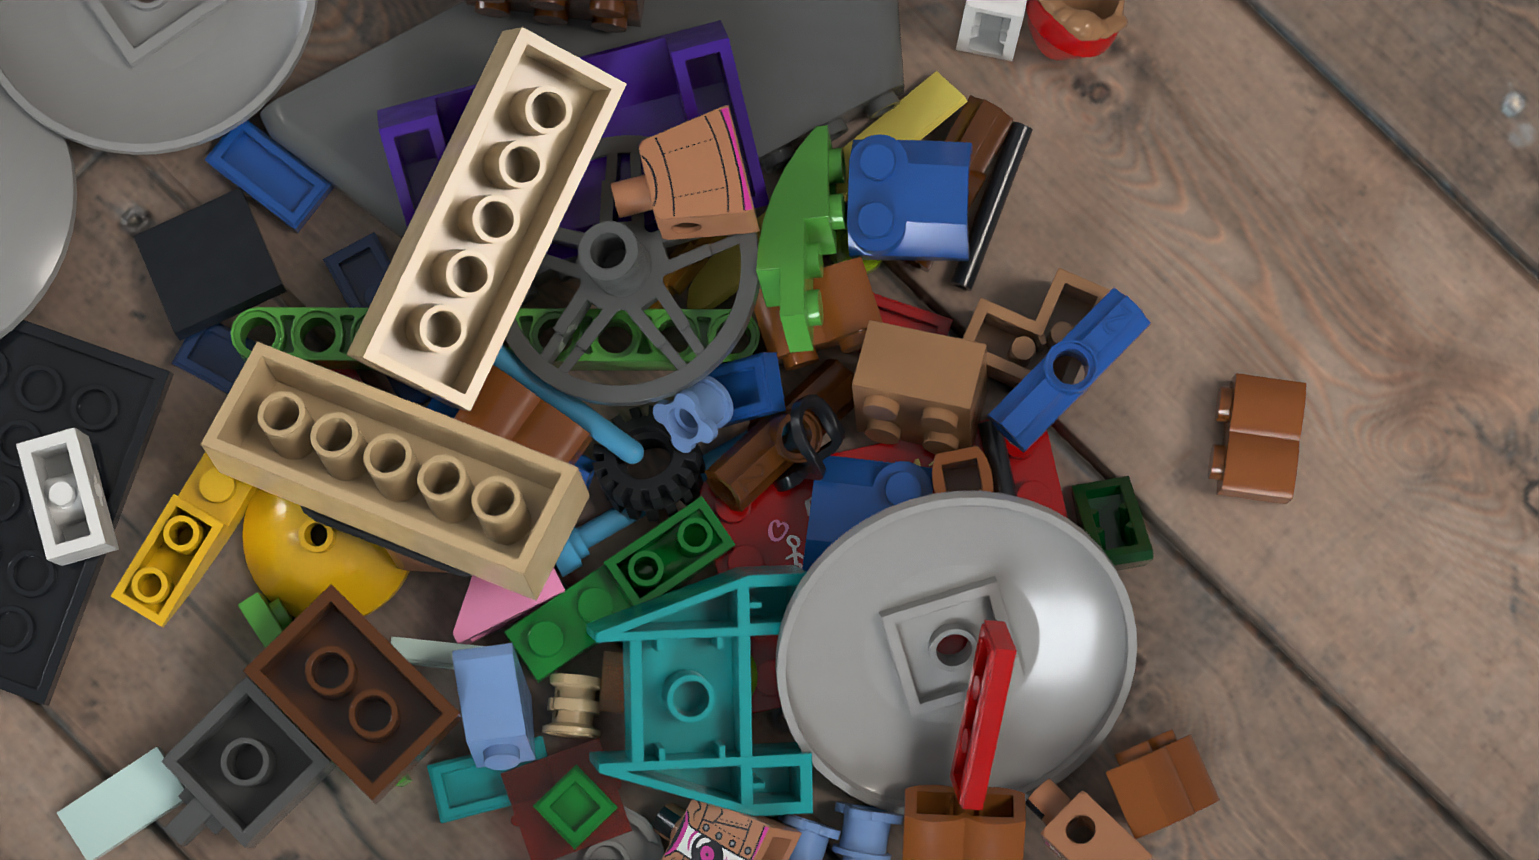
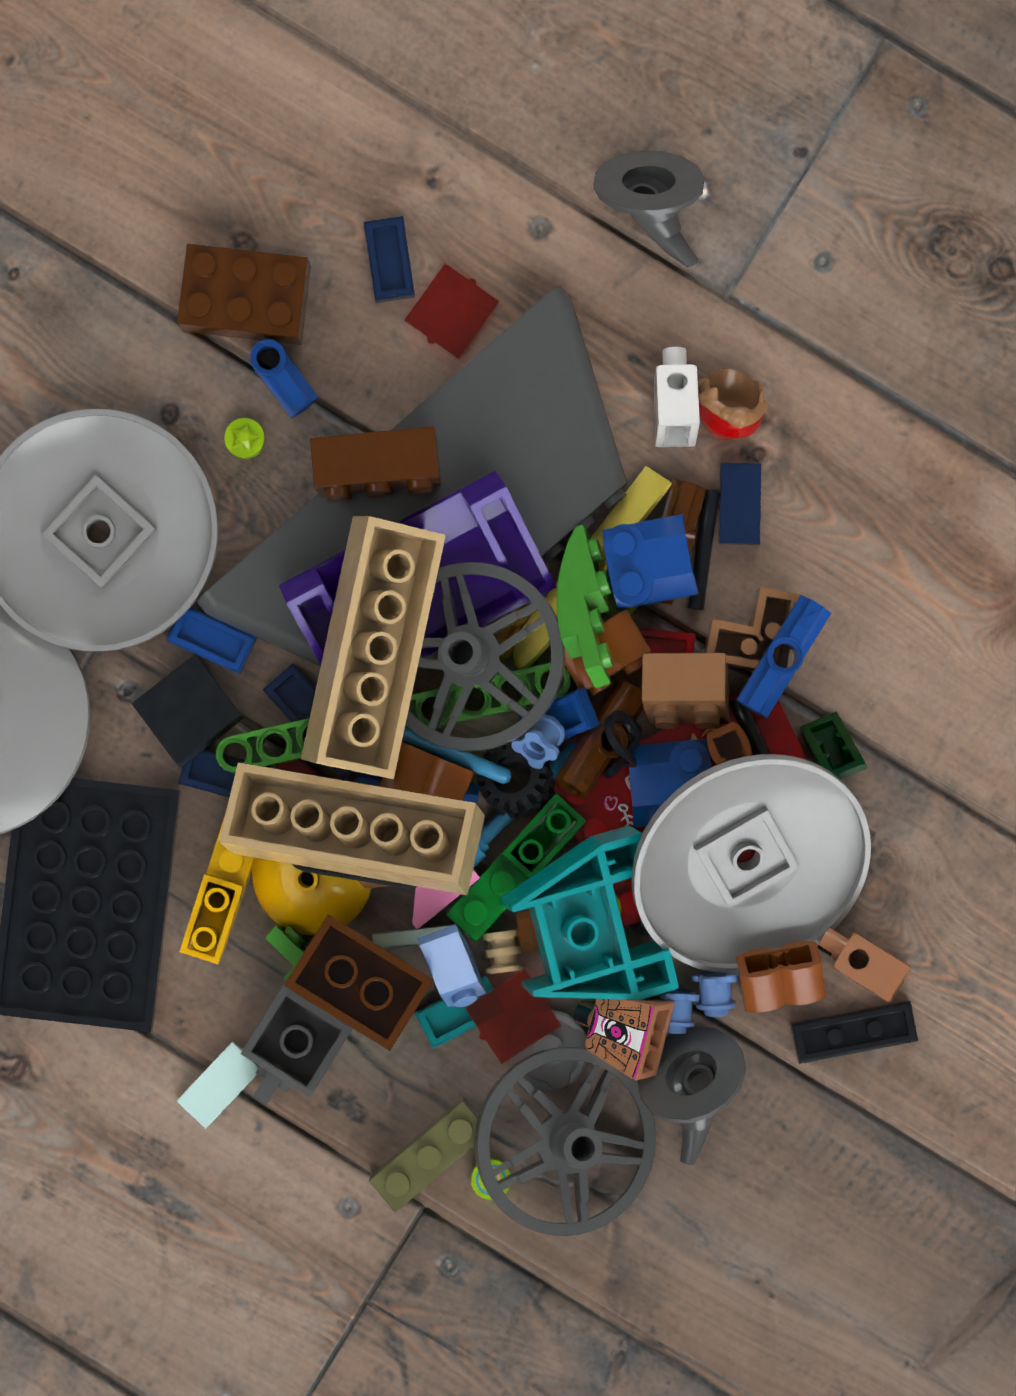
camera: 10 degrees left, 5 degrees up
(67, 496) = (134, 893): white brick -> none
(575, 807) = (520, 1019): green tile -> none
(692, 181) = (504, 589): nougat torso -> none
(982, 714) = (777, 899): red tile -> none
(1057, 153) = (740, 503): none -> dark blue tile
(1161, 783) = (904, 915): dark orange brick -> none
(1259, 438) = (918, 667): dark orange brick -> none

